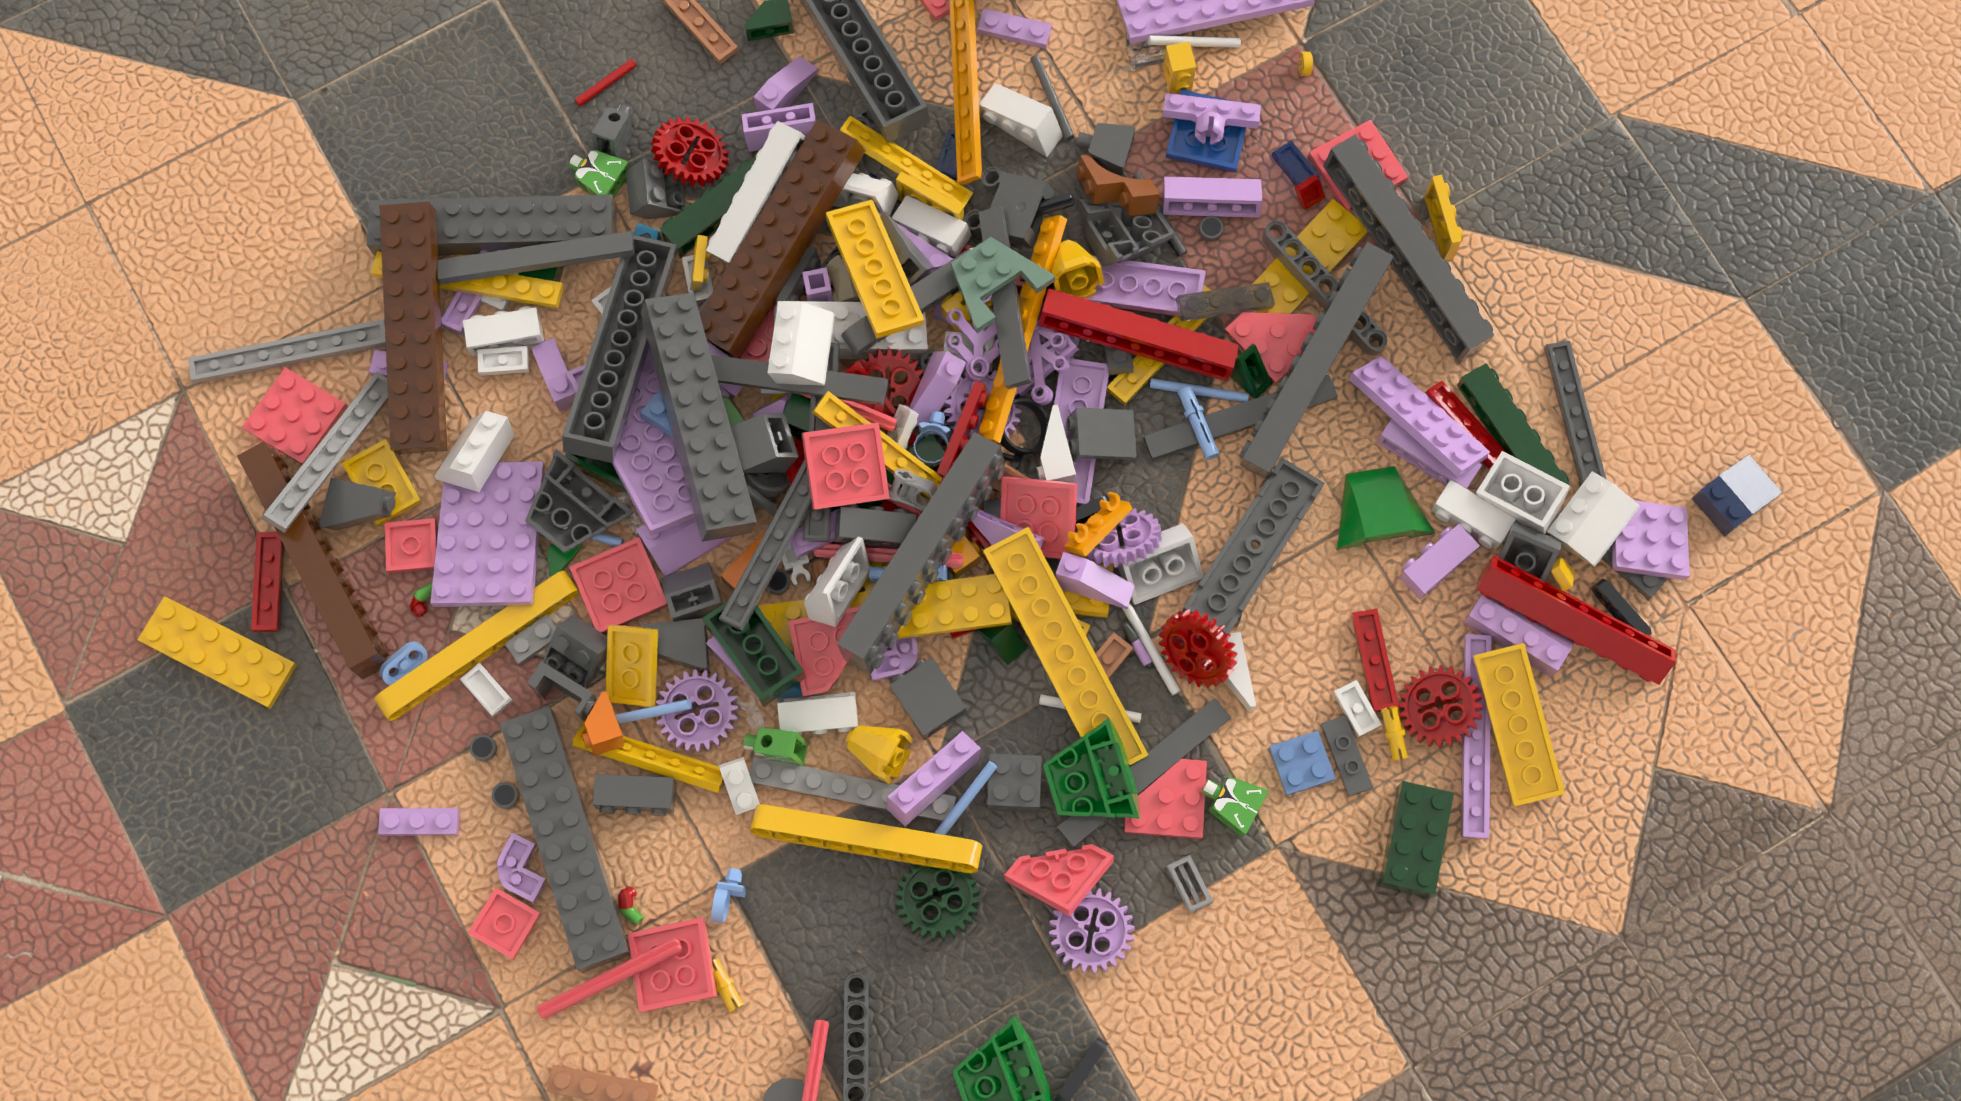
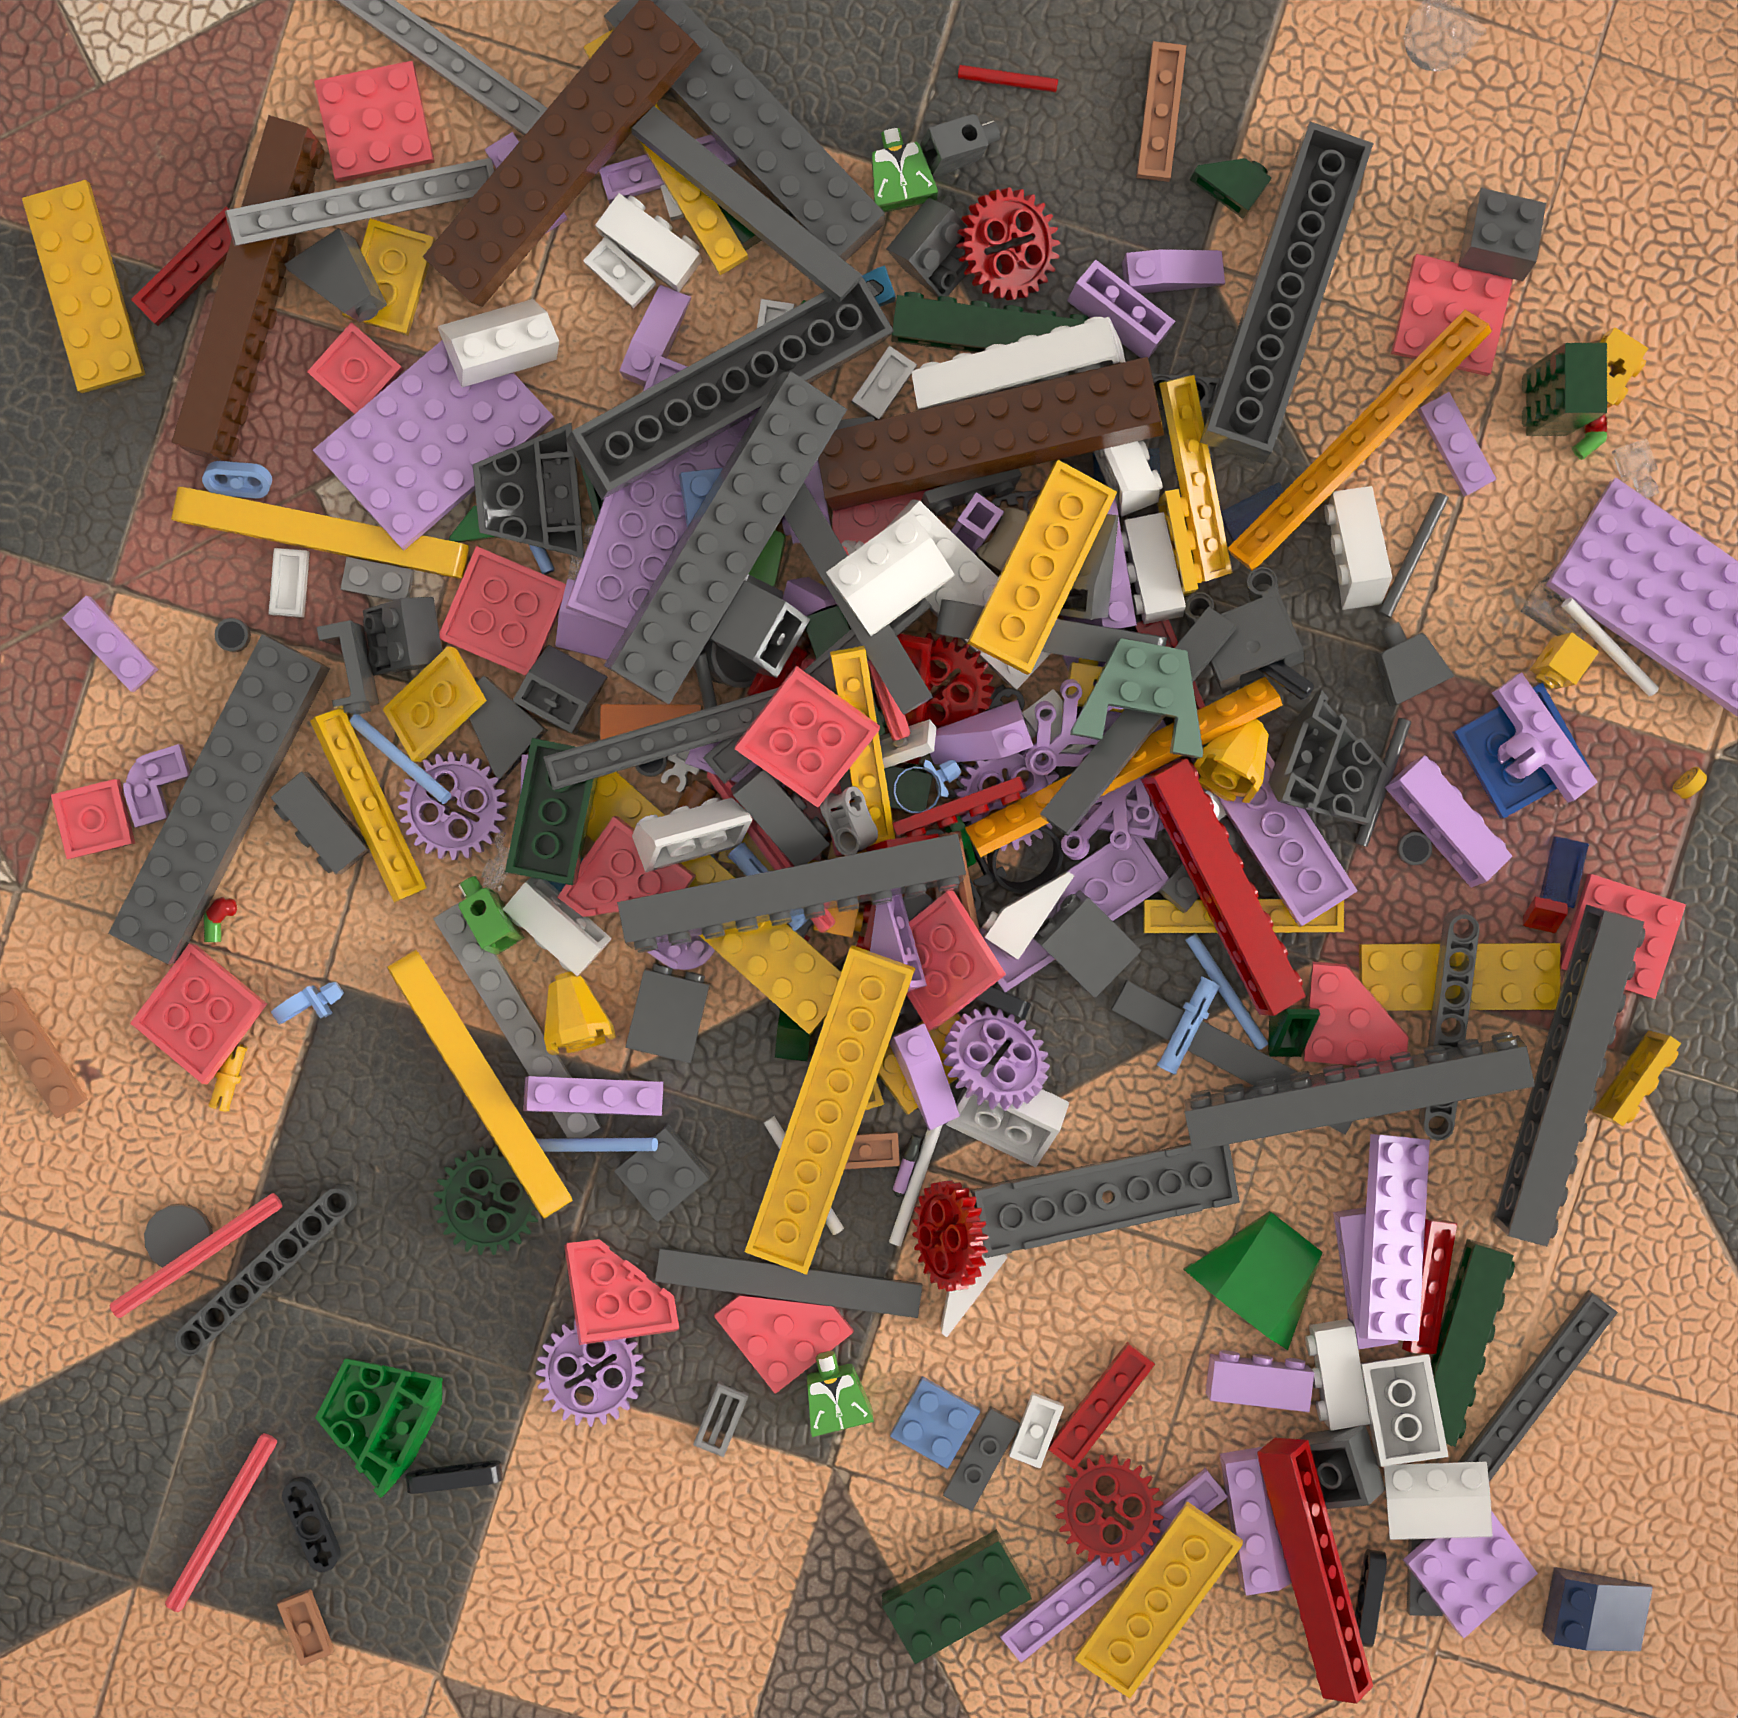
camera: 45 degrees right, 15 degrees up
(419, 599) = (311, 431): arm -> none
(505, 795) = (208, 700): tile -> none
(602, 727) = (347, 736): orange slope -> none
(609, 978) = (133, 968): coral axle -> none
(699, 273) = (886, 382): yellow plate -> none
(739, 785) = (419, 916): white plate -> none
(1094, 776) = (733, 1249): green wedge -> none
(1097, 525) = (984, 1030): light orange plate -> none
(1102, 186) = (1356, 703): dark orange arch -> none
(1225, 301) = (1340, 941): clear smoke plate -> none
(1394, 733) = (1043, 1487): yellow pin -> none
(1563, 574) = (1351, 1520): yellow tile -> none

